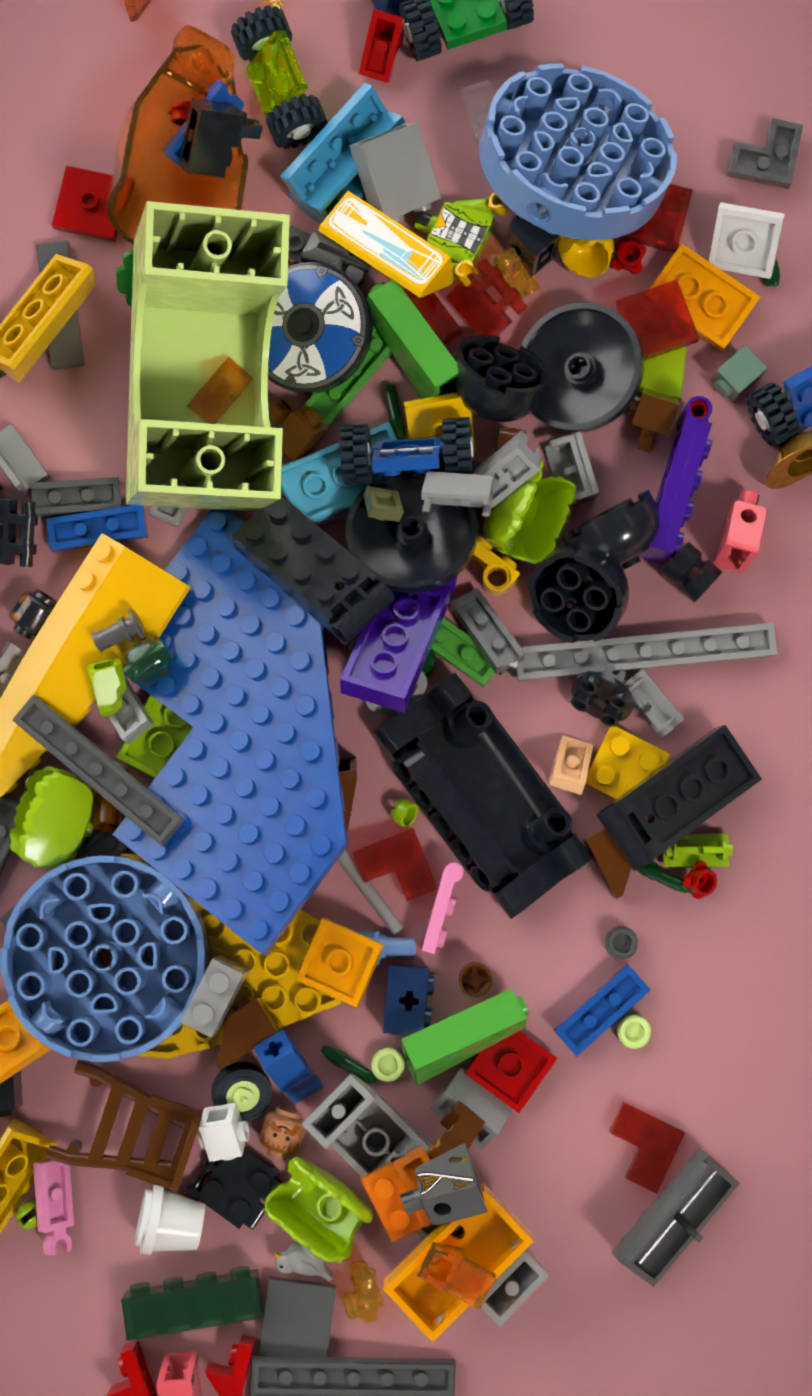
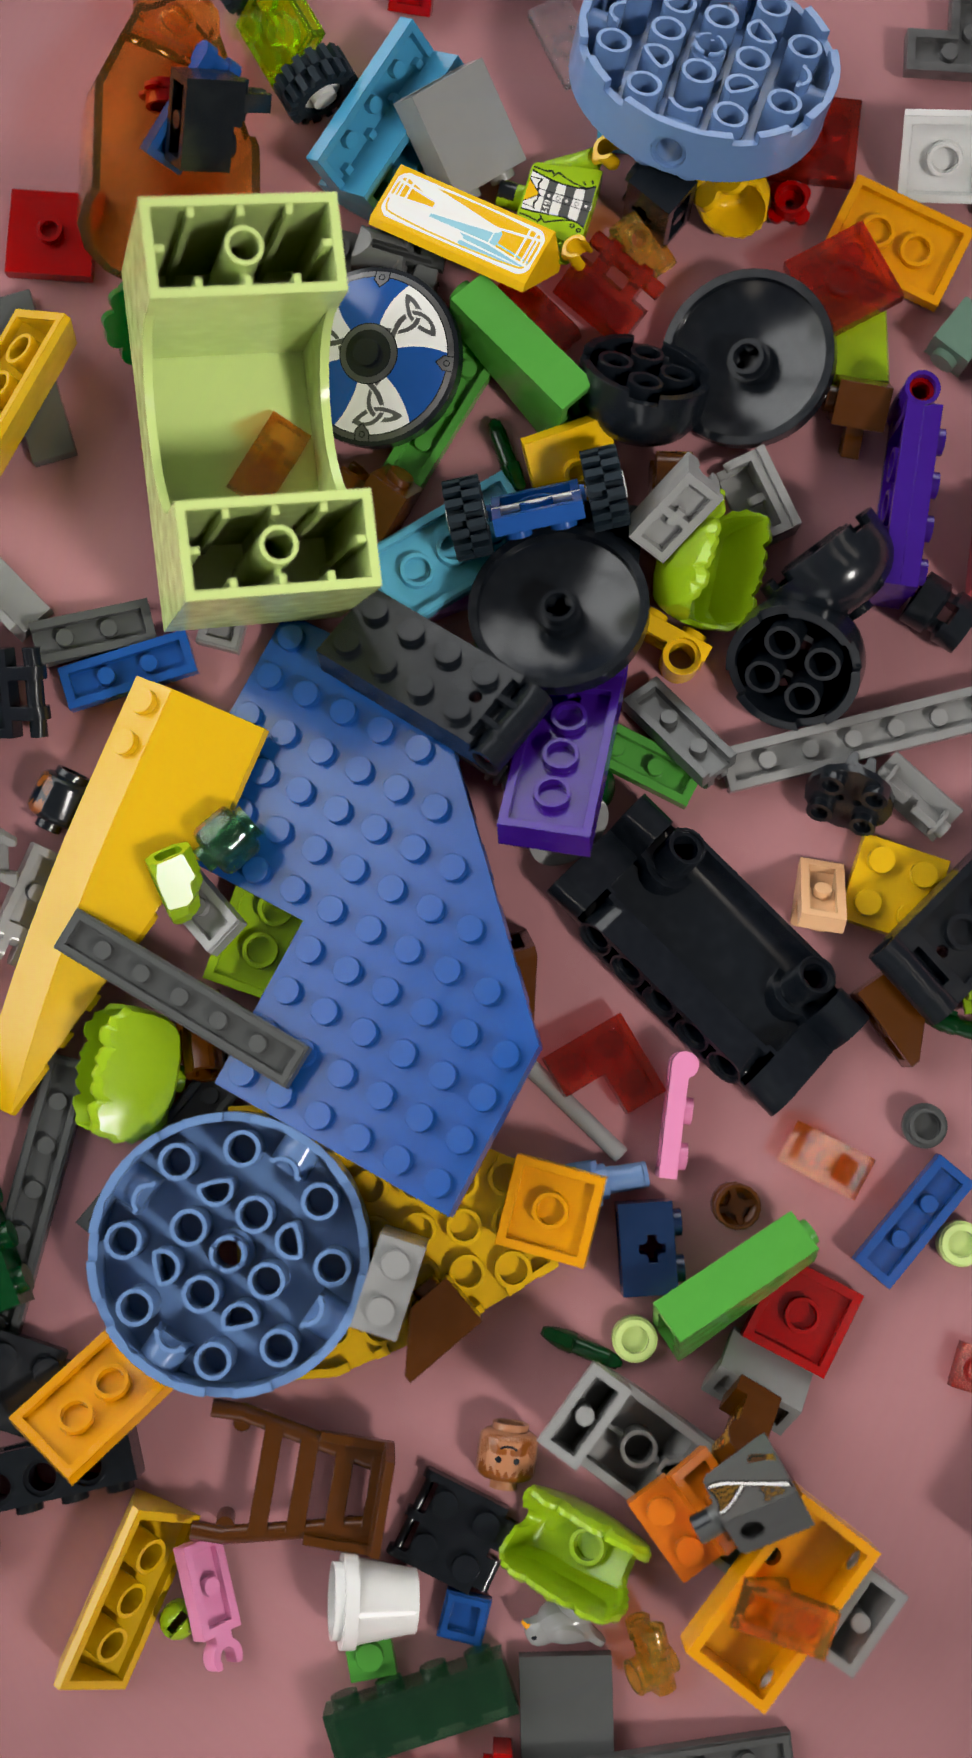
camera: 10 degrees left, 0 degrees up
(122, 630) = (182, 805): dark grey pin -> none
(163, 1265) = (372, 1661): none -> bright green plate
(223, 1132) = (427, 1467): white brick -> none
(234, 1244) = (464, 1616): none -> blue tile
(244, 1085) = (442, 1408): black wheel -> none
(287, 1067) = (501, 1363): blue piece -> none
(383, 504) = (515, 579): olive plate -> none
(404, 812) = (604, 994): lime hinge -> none
(458, 490) = (616, 544): light grey hinge -> none
(544, 956) = (826, 1160): none -> clear orange slope

